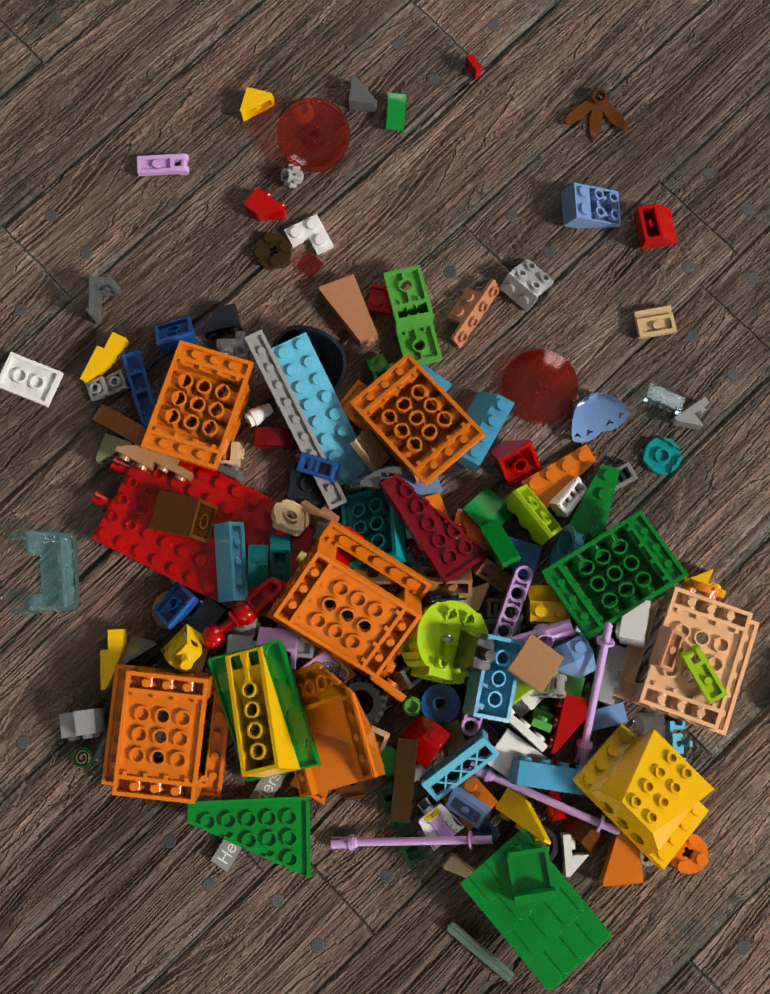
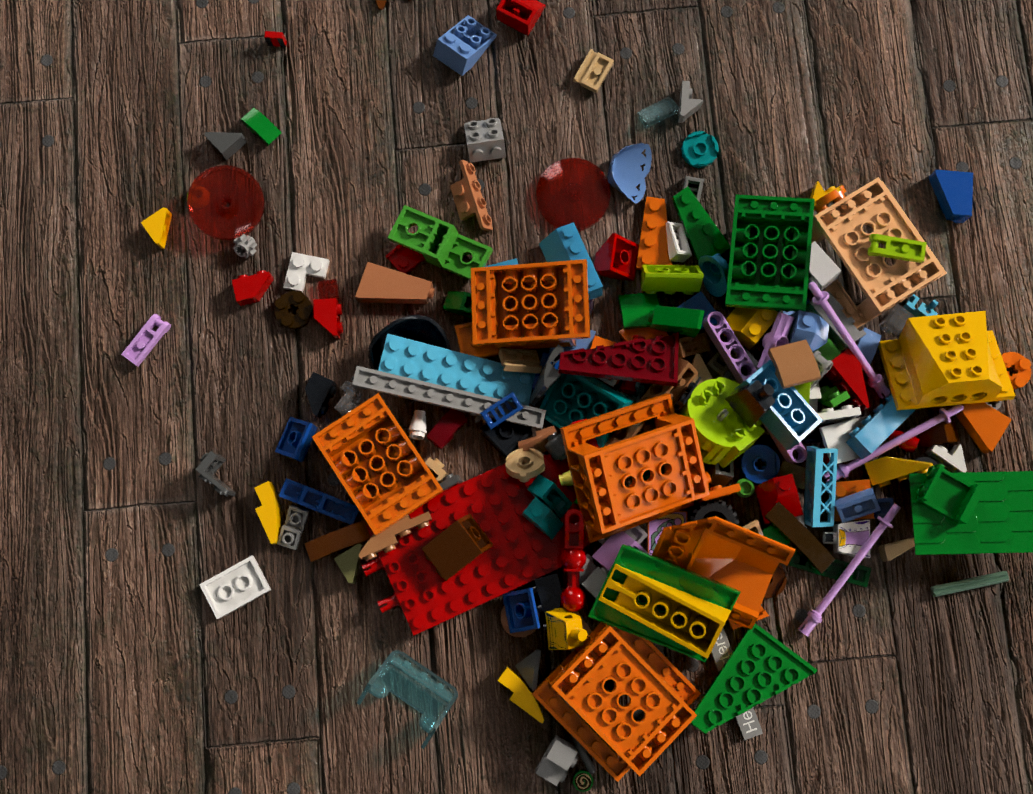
camera: 50 degrees left, 0 degrees up
(231, 561) = (522, 538): medium azure panel -> none
(289, 279) = (327, 315): none -> red slope
(667, 648) = (856, 259): nougat slope -> none

